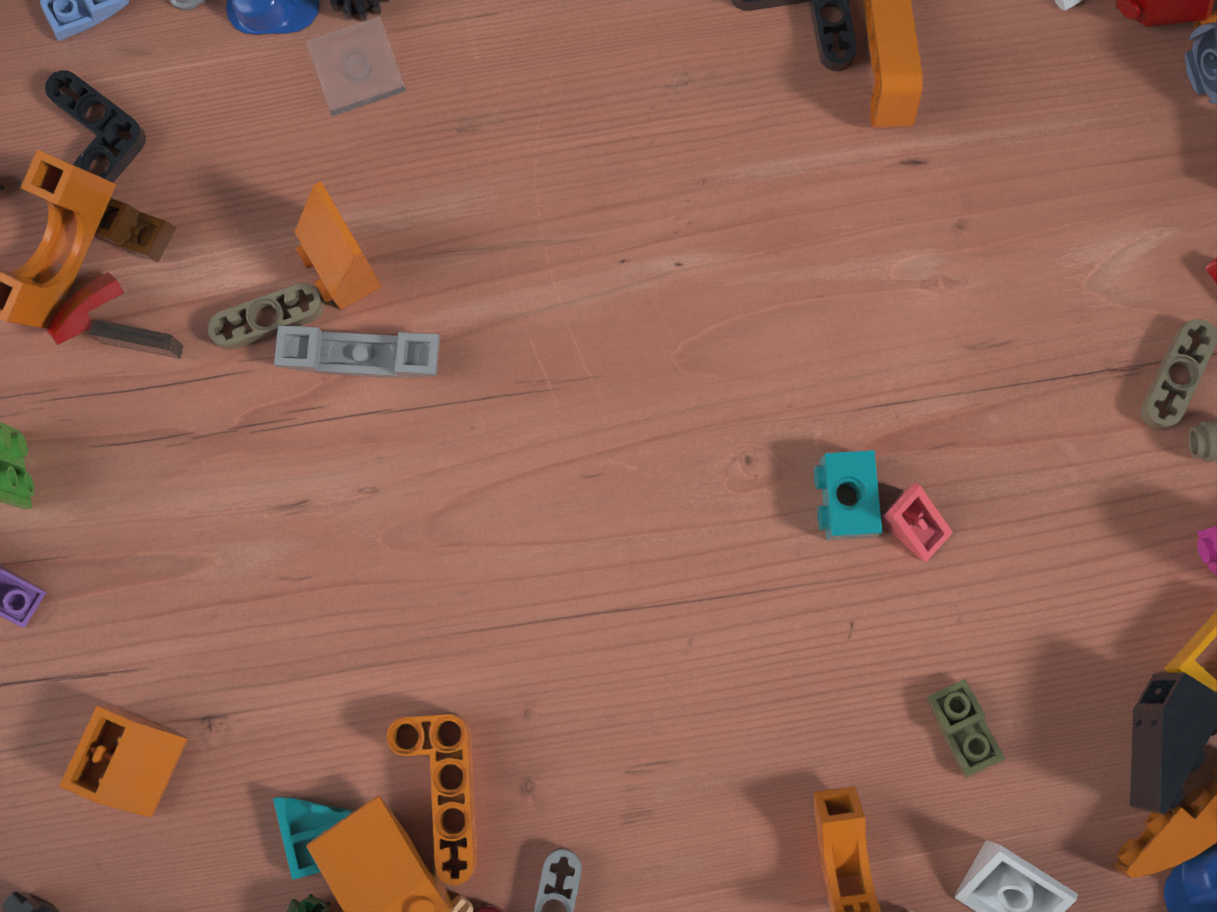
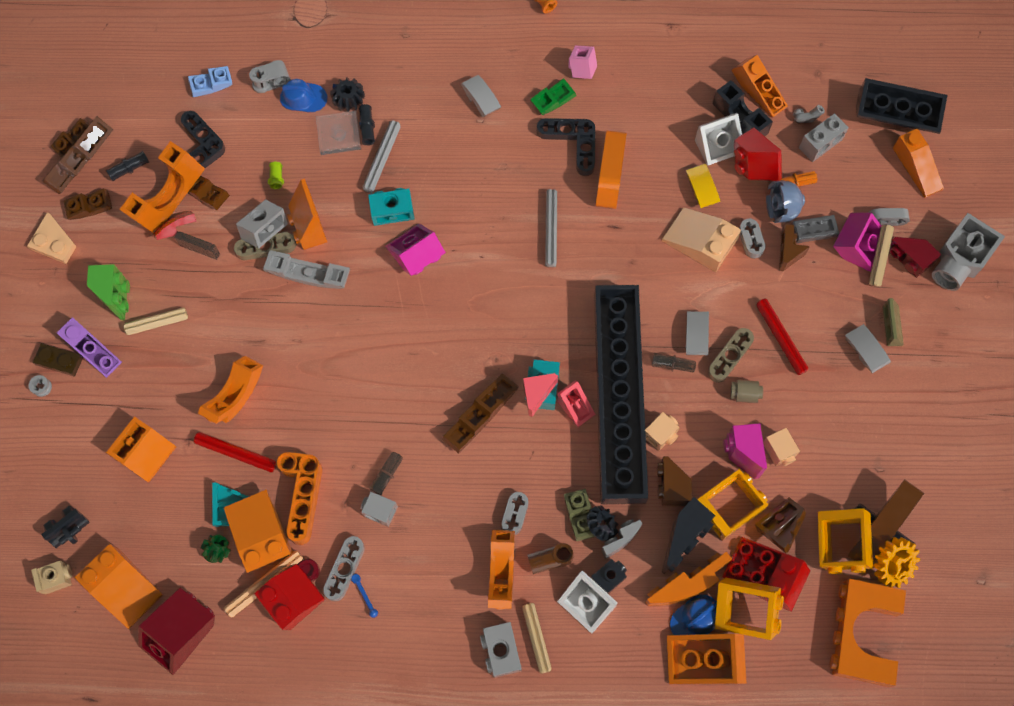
camera: 10 degrees right, 10 degrees down
(91, 502) = (155, 321): none -> tan axle
(251, 276) = (262, 223): none -> light grey brick
(257, 182) = (275, 180): none -> lime pin
(274, 620) = (235, 392): none -> orange arch
(301, 728) = (235, 452): none -> red axle
(407, 40) = (366, 124): none -> black pin
(448, 99) = (381, 156): none -> light grey axle
(478, 215) = (385, 215): none -> teal brick
(555, 273) = (416, 249): none -> dark pink slope
(592, 717) = (386, 473): none -> clear smoke axle
(593, 789) = (378, 509): none -> light grey brick
(742, 571) = (480, 413): none -> reddish brown slope
(798, 186) = (551, 228): none -> light grey axle
(847, 518) = (537, 390): none -> coral slope
(856, 748) = (520, 515): none -> light grey beam
(925, 825) = (547, 558): none -> reddish brown piece
(997, 490) = (620, 395): none -> black brick
(998, 738) = (594, 519): none -> black gear
(1027, 837) = (604, 582): none -> black brick
(1060, 753) = (626, 534): none -> light grey slope
(1068, 54) = (703, 185): none -> yellow slope
(1078, 409) = (672, 363): none -> clear smoke axle
(1084, 545) = (662, 431): none -> light nougat brick
(1085, 155) = (702, 237): none -> light nougat slope
(1112, 344) = (697, 333): none -> light grey slope
(1126, 641) = (676, 484): none -> reddish brown slope
(1178, 139) = (756, 237): none -> light grey beam

